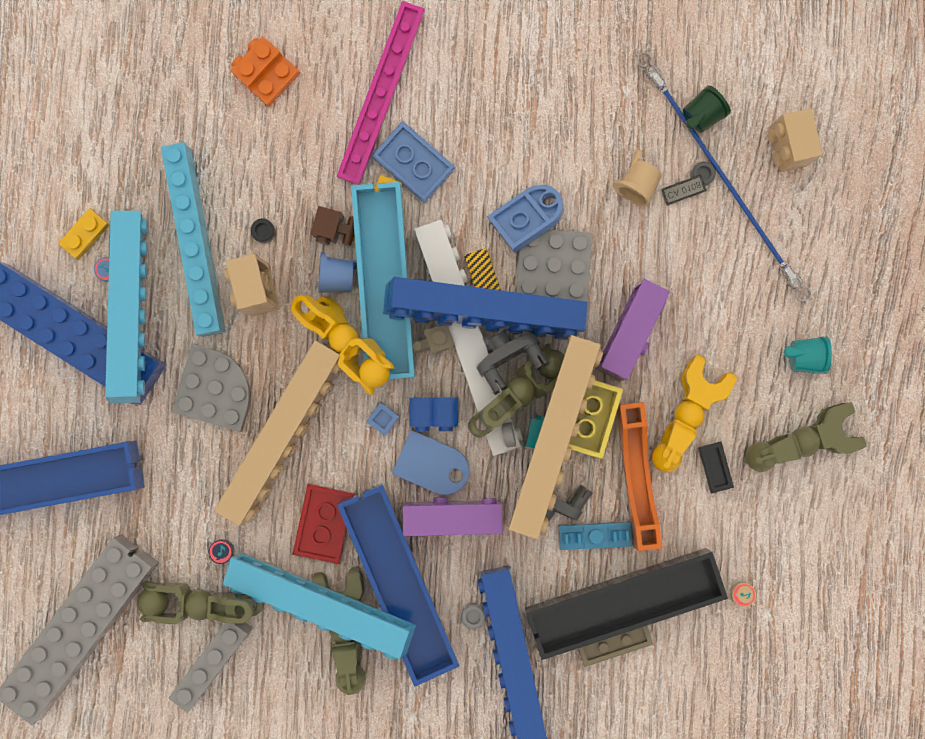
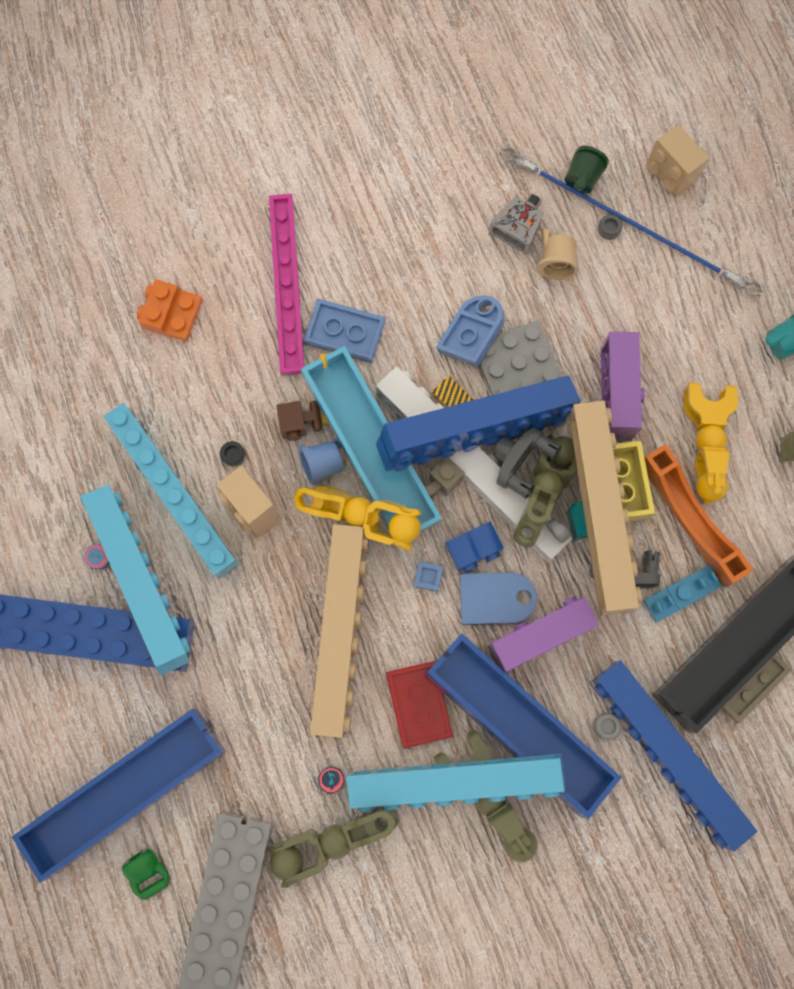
camera: 25 degrees left, 10 degrees down
(35, 549) = (141, 868): none -> green piece
(83, 234) = (60, 533): yellow plate -> none
(209, 665) = (373, 899): light grey brick -> none
(213, 389) = (252, 624): light grey plate -> none
(619, 132) = (518, 223): none -> light grey torso
(683, 190) = (600, 247): clear smoke sticker -> none
(716, 467) = (759, 477): black tile -> none

